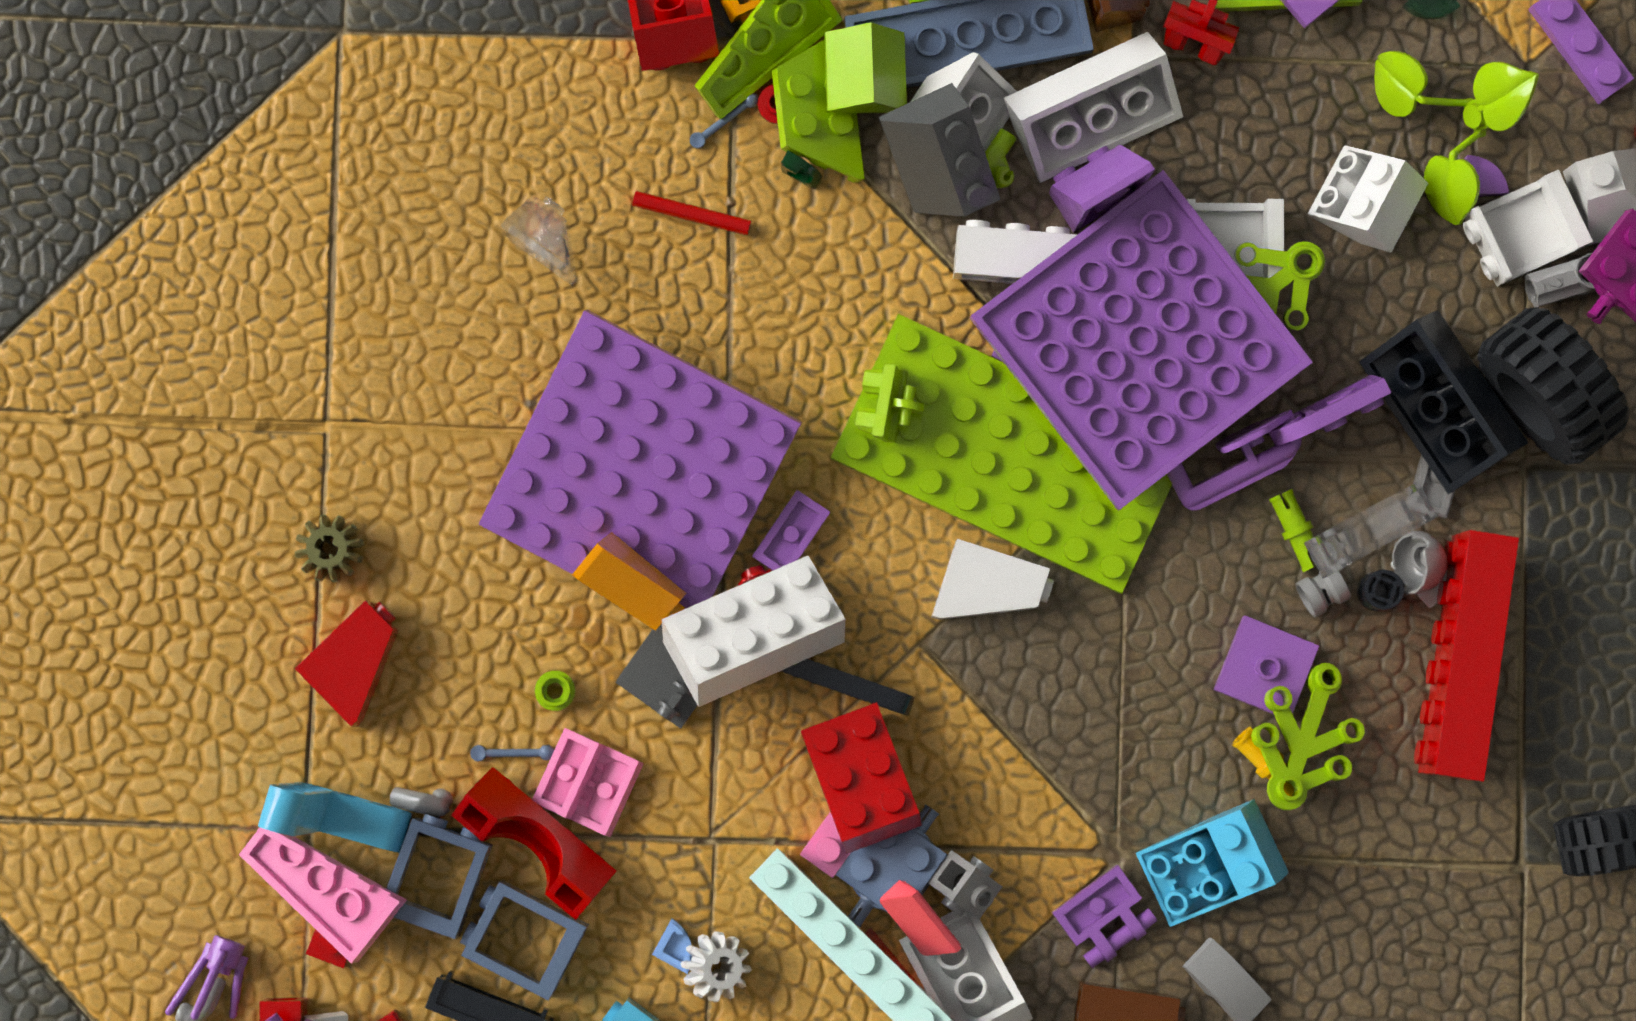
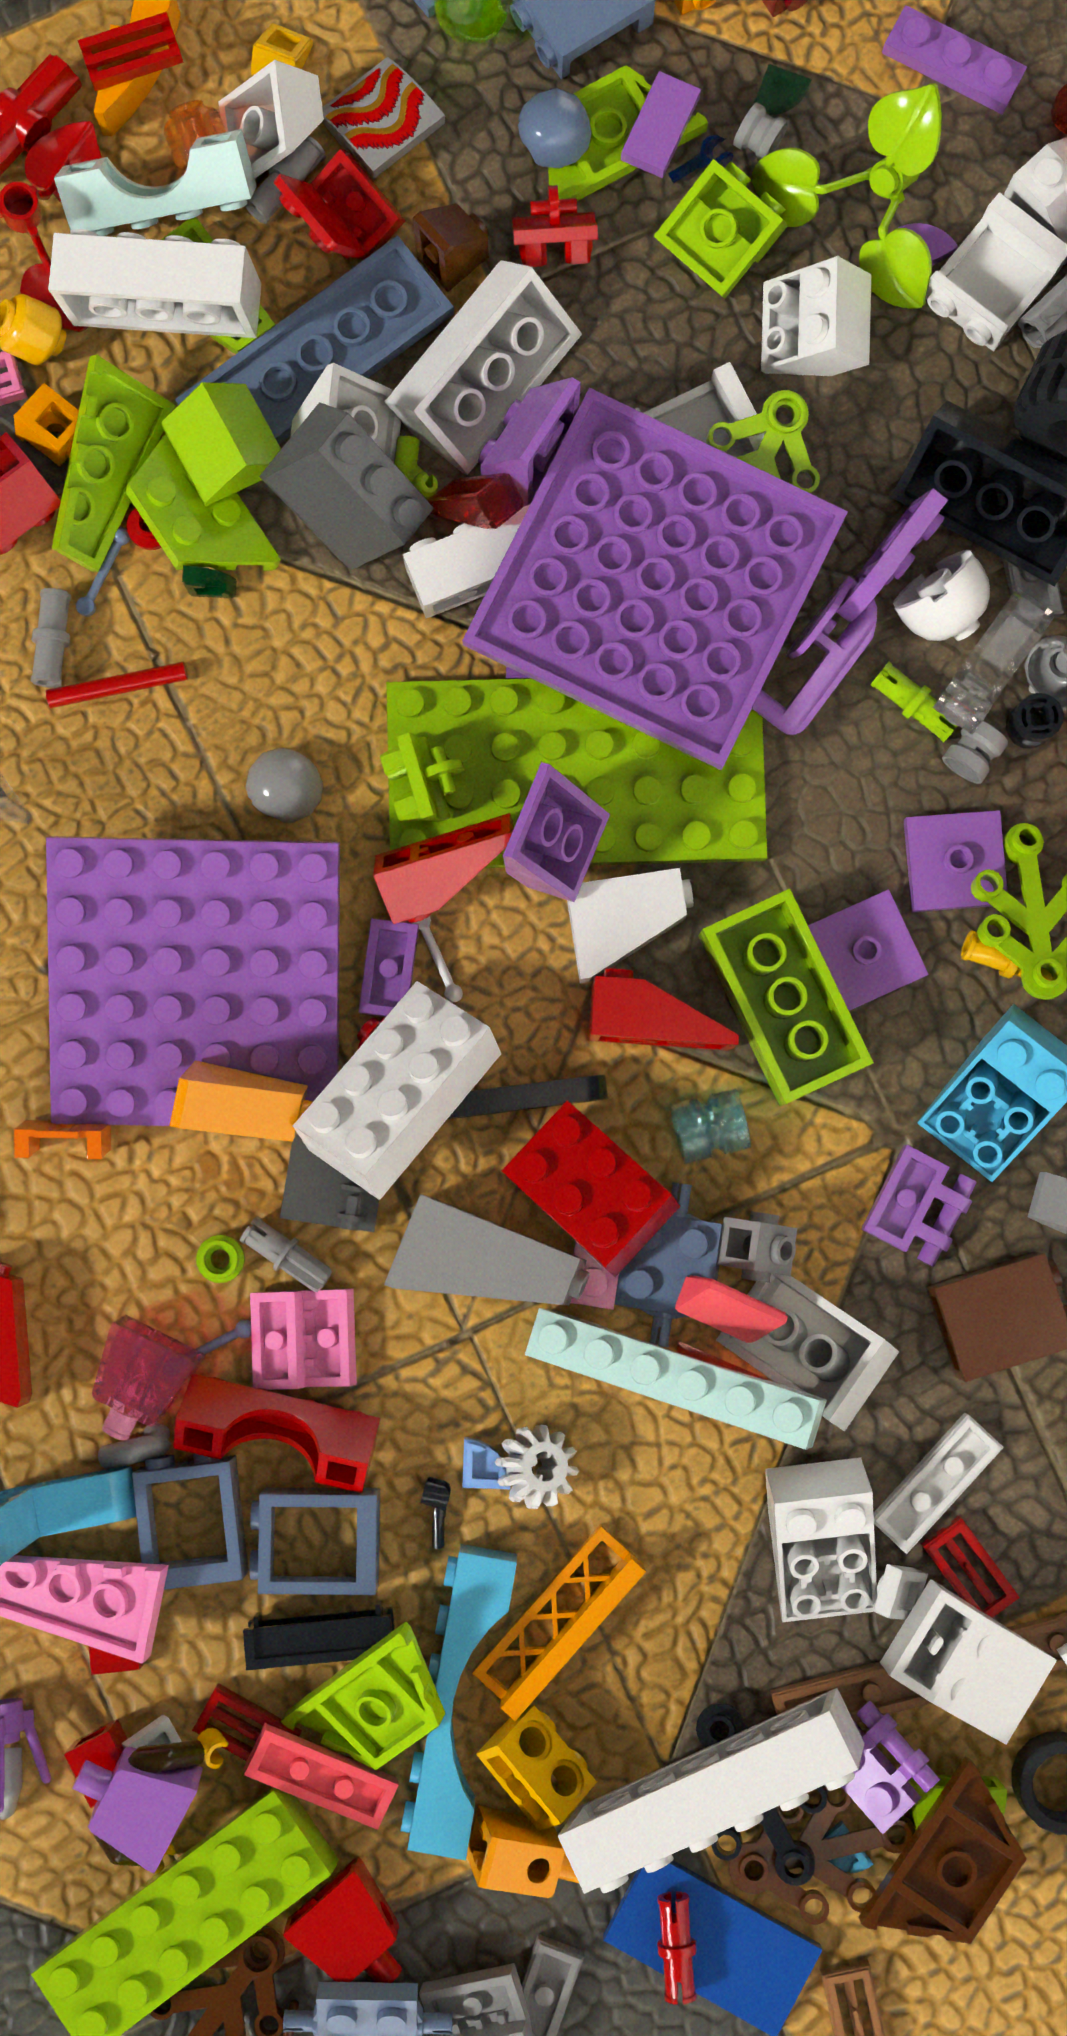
camera: 25 degrees left, 0 degrees up
(453, 748) = (141, 1375): none -> clear pink torso
(460, 522) = (29, 1132): none -> orange piece
(606, 712) = (286, 1254): none -> light grey axle
(629, 950) = (437, 1495): none -> black hand
(659, 153) = (50, 638): none -> light grey pin
(748, 786) = (474, 1257): none -> light grey slope
(781, 353) = (284, 785): none -> light grey hair
(831, 576) = (452, 992): none -> white hinge
(862, 477) = (432, 871): none -> slope
(966, 500) = (554, 836): none -> medium lavender slope
(967, 667) = (643, 1014): none -> red slope
(975, 776) = (710, 1126): none -> clear light blue wheel
(1036, 211) = (478, 500): none -> clear red slope
(1080, 707) = (785, 997): none -> lime brick
(1161, 702) = (868, 950): none -> medium lavender plate
(1332, 89) = (722, 227): none -> lime plate
(1346, 26) = (702, 158): none -> clear blue hand
(1358, 464) = (947, 600): none -> white cylinder
(1399, 29) = (760, 132): none -> light grey wheel

